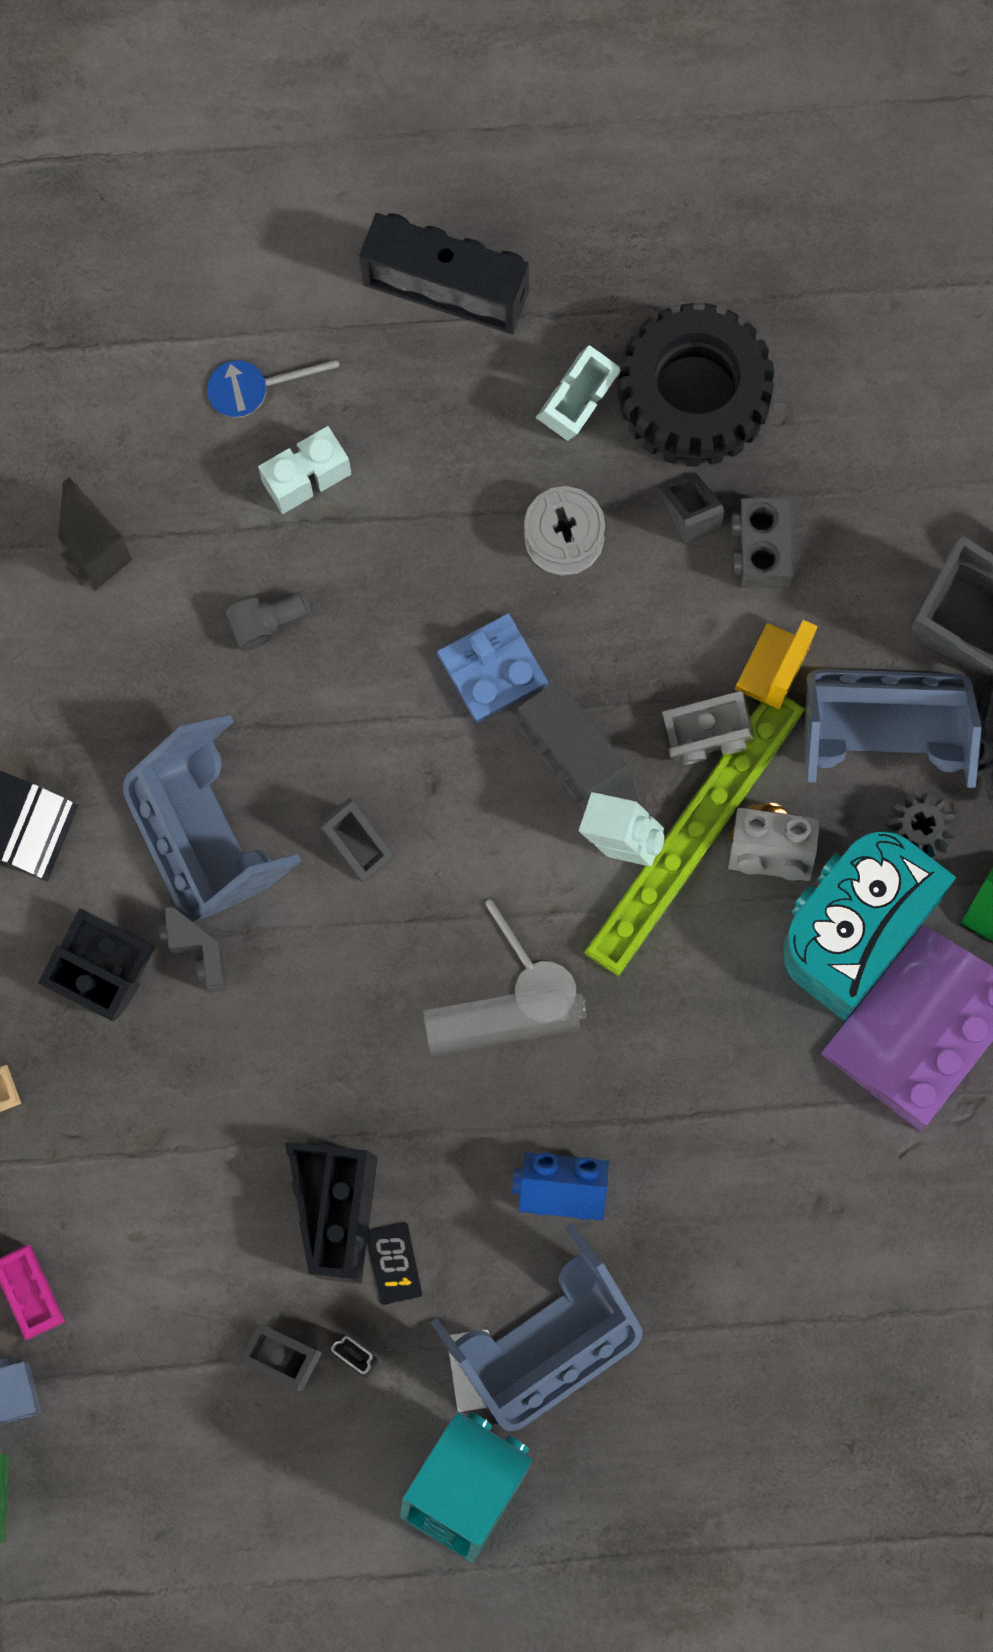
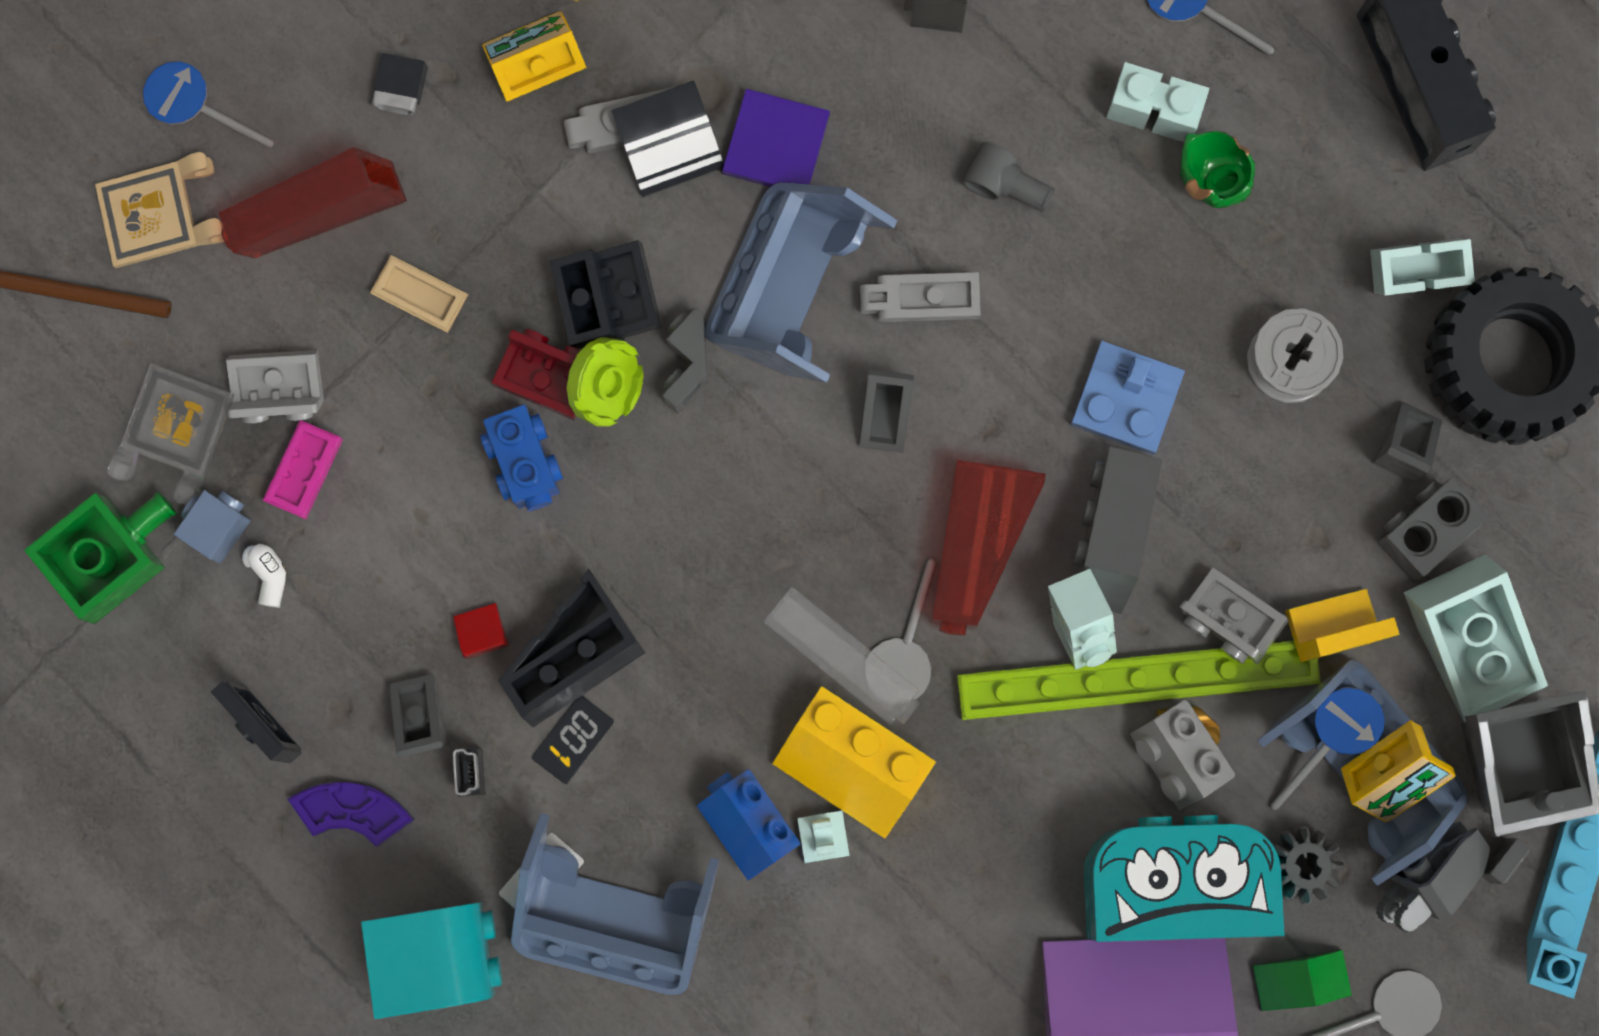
camera: 50 degrees right, 5 degrees up
(80, 1378) = (270, 570): none -> white arm
(92, 753) = (775, 140): none -> dark purple tile
(114, 1057) = (536, 371): none -> dark red bracket
(160, 1018) = (604, 381): none -> lime tile
(172, 1129) = (526, 470): none -> blue brick
(185, 1478) = (256, 722): none -> black plate
(259, 1262) = (480, 631): none -> red slope
(297, 746) = (923, 297): none -> light grey hinge
(304, 1465) = (351, 807): none -> dark purple tile
(387, 470) = (1216, 169): none -> green hair
(499, 850) = (980, 532): none -> clear red slope
(583, 1075) = (853, 762): none -> yellow slope
(617, 1143) = (823, 836): none -> light aqua tile
(849, 713) = (1345, 722): none -> blue piece
(863, 576) = (1477, 636): none -> light aqua slope
(910, 710) = (1395, 773): none -> panel

